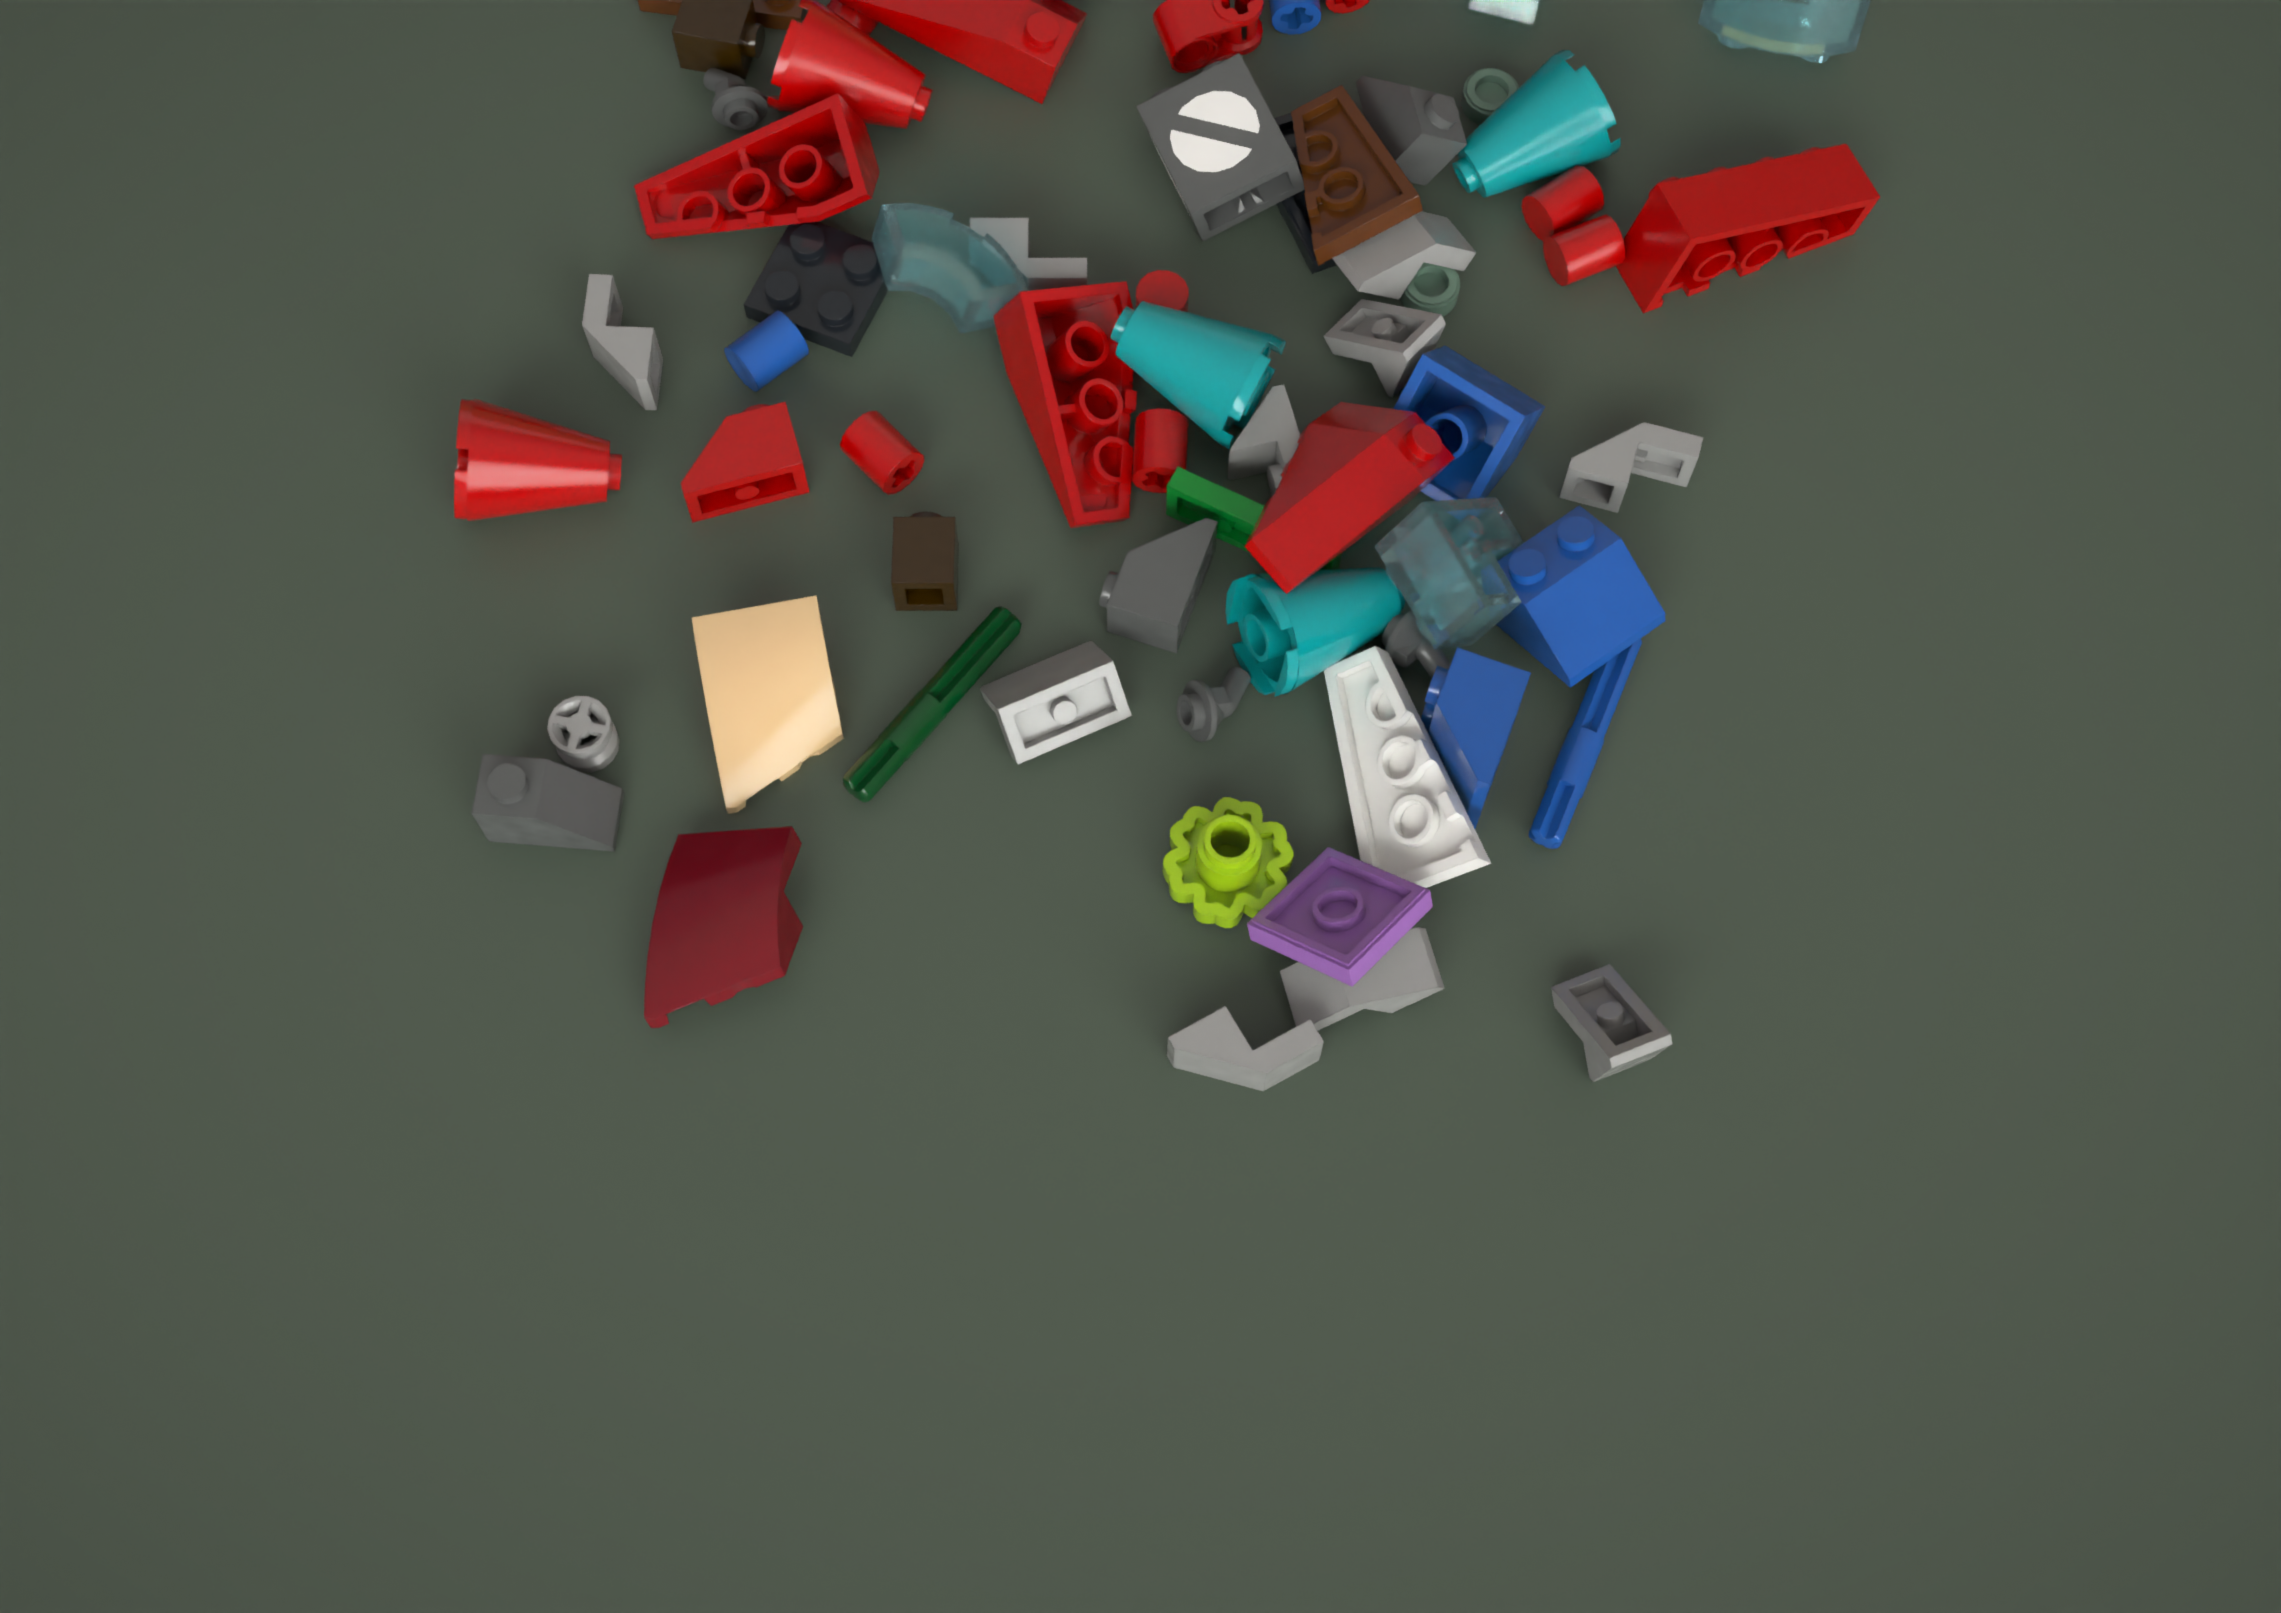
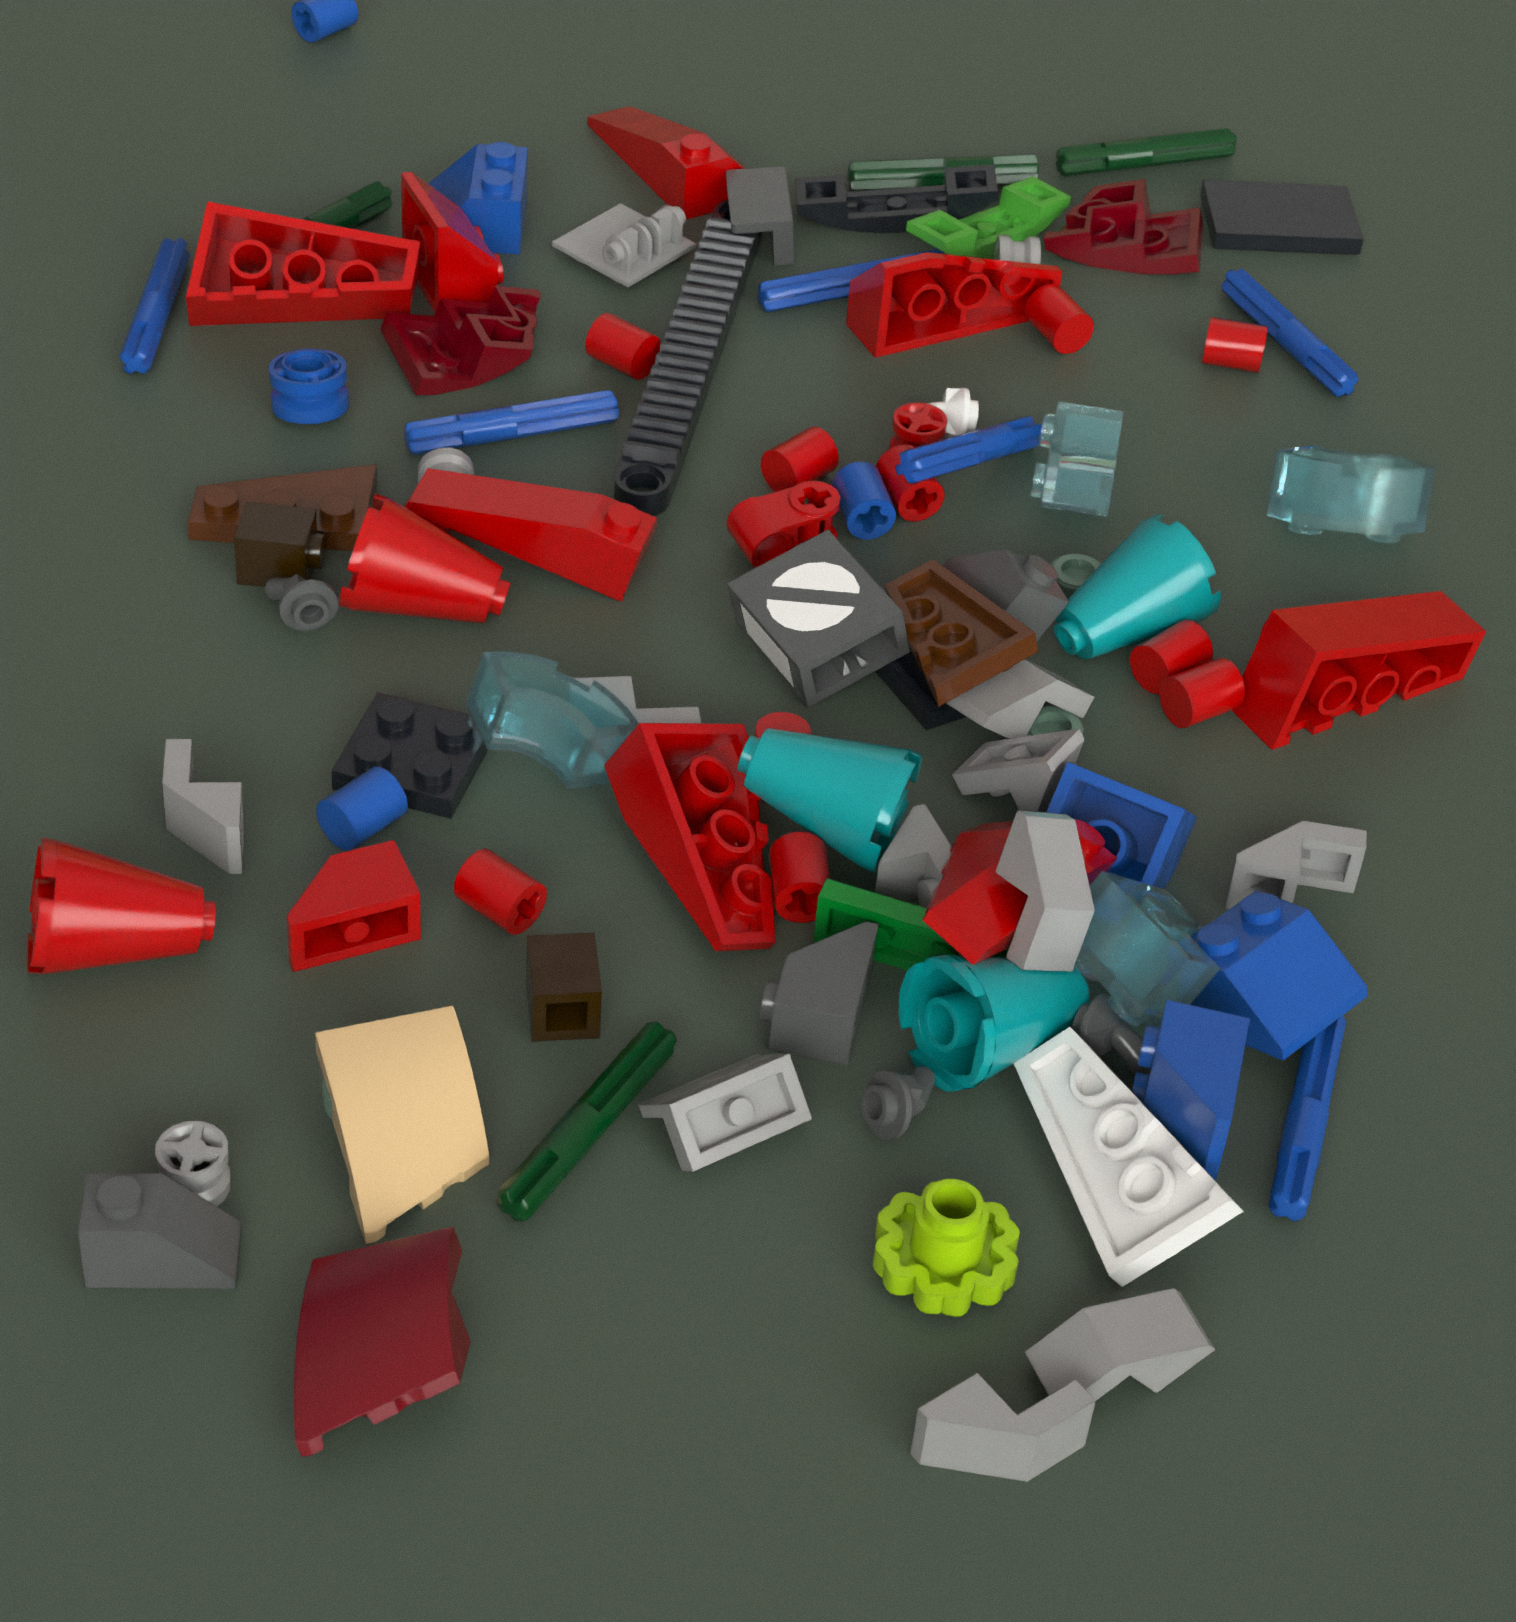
camera: 10 degrees left, 25 degrees down
(768, 178) = (348, 655): red wedge -> none
(1340, 916) = (1086, 1278): medium lavender tile -> none
(1372, 507) = (1048, 866): none -> light grey slope
(1610, 1021) = (1416, 1373): light grey slope -> none

